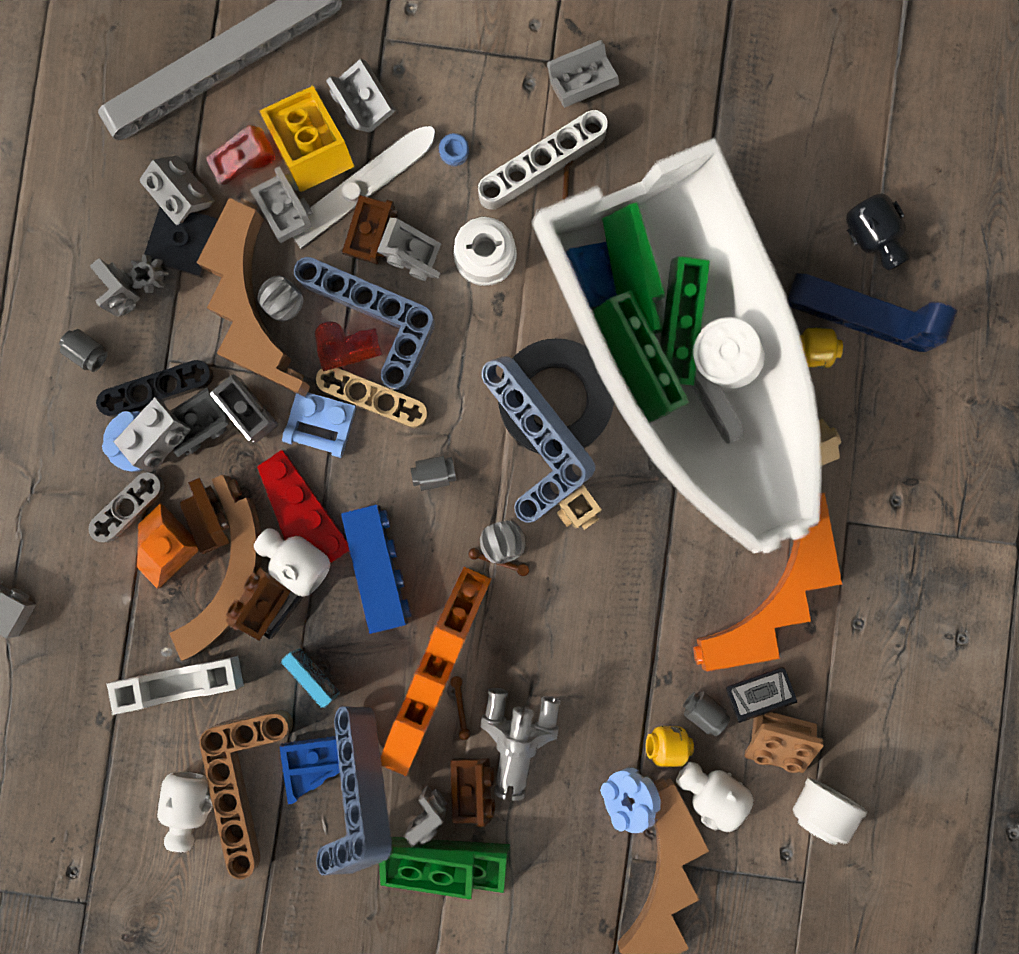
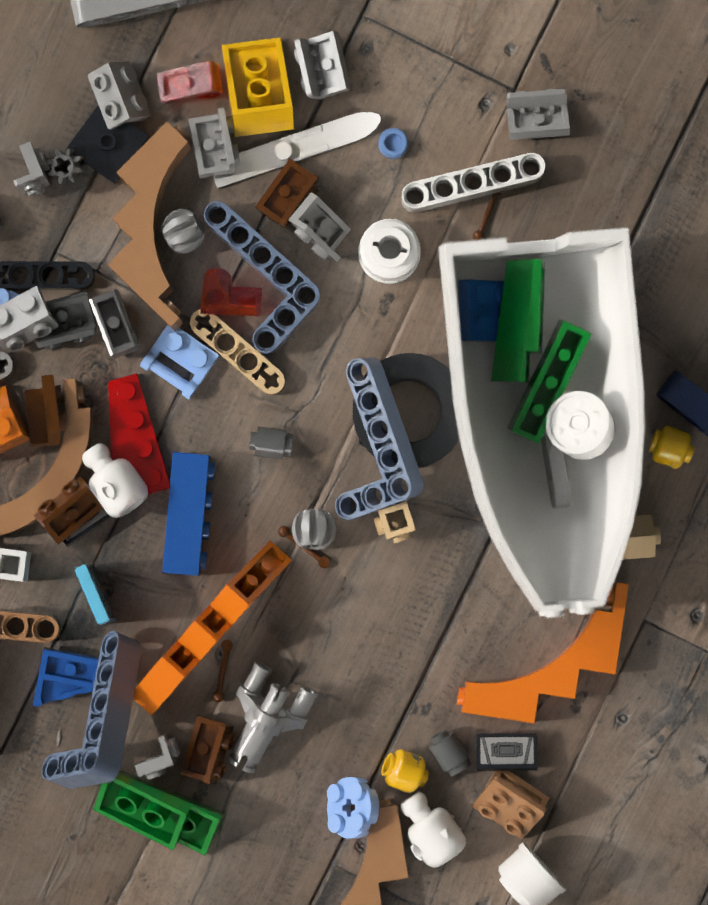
camera: 10 degrees right, 0 degrees up
(639, 357) = (495, 401): green brick -> none

